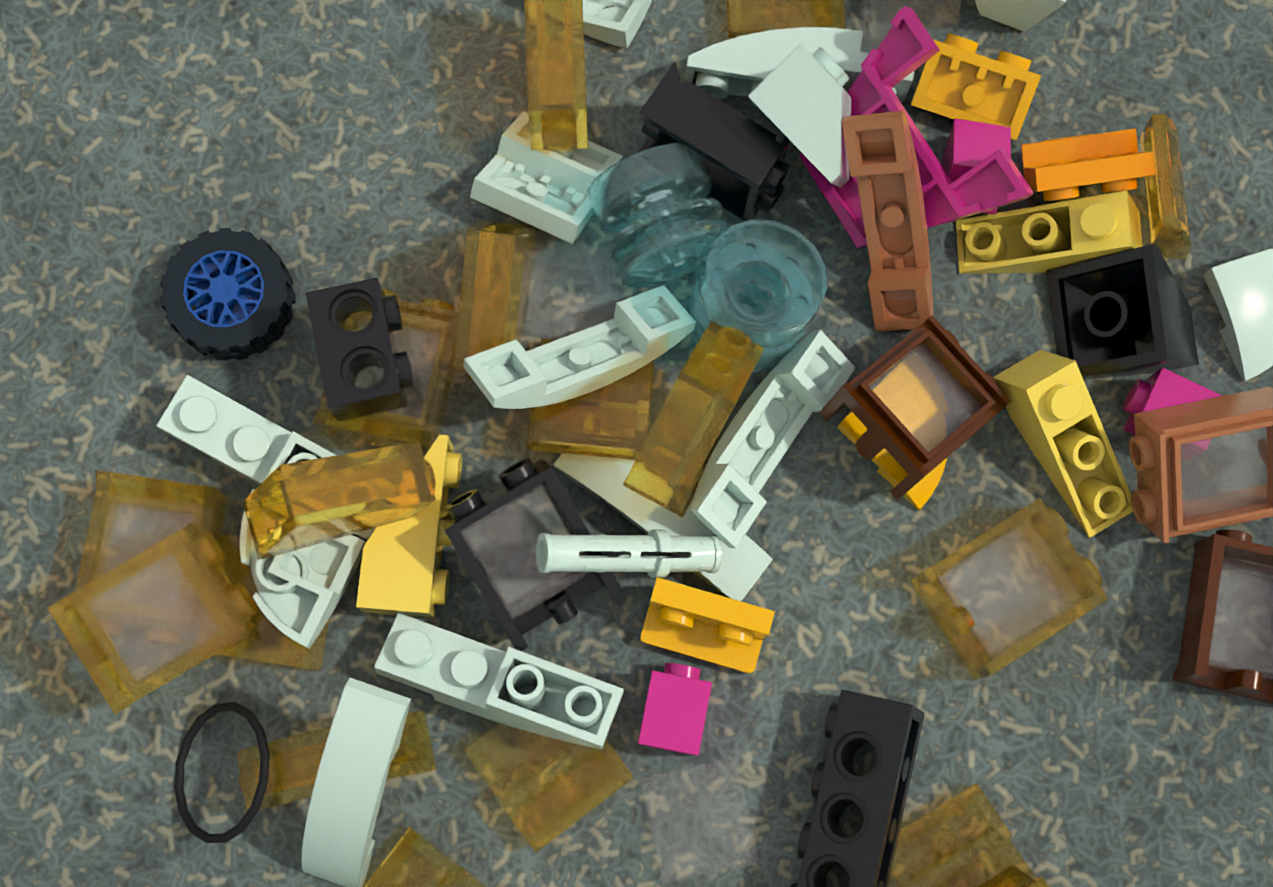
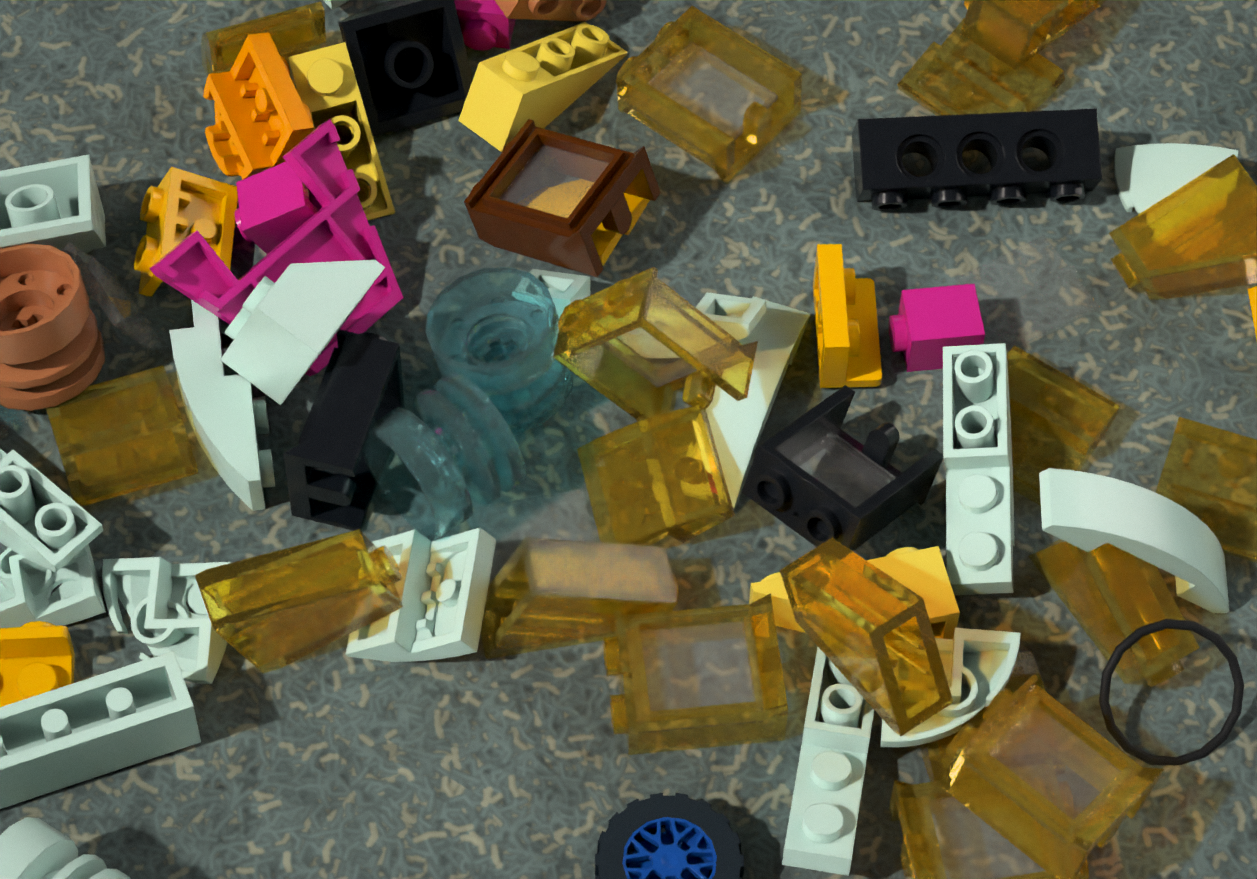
camera: 105 degrees left, 20 degrees down
(347, 352) = (710, 683): black brick -> none
(585, 360) = (614, 483): light aqua slope -> none
(695, 553) = (802, 359): light aqua pin -> none
(893, 217) = (408, 247): nougat slope -> none

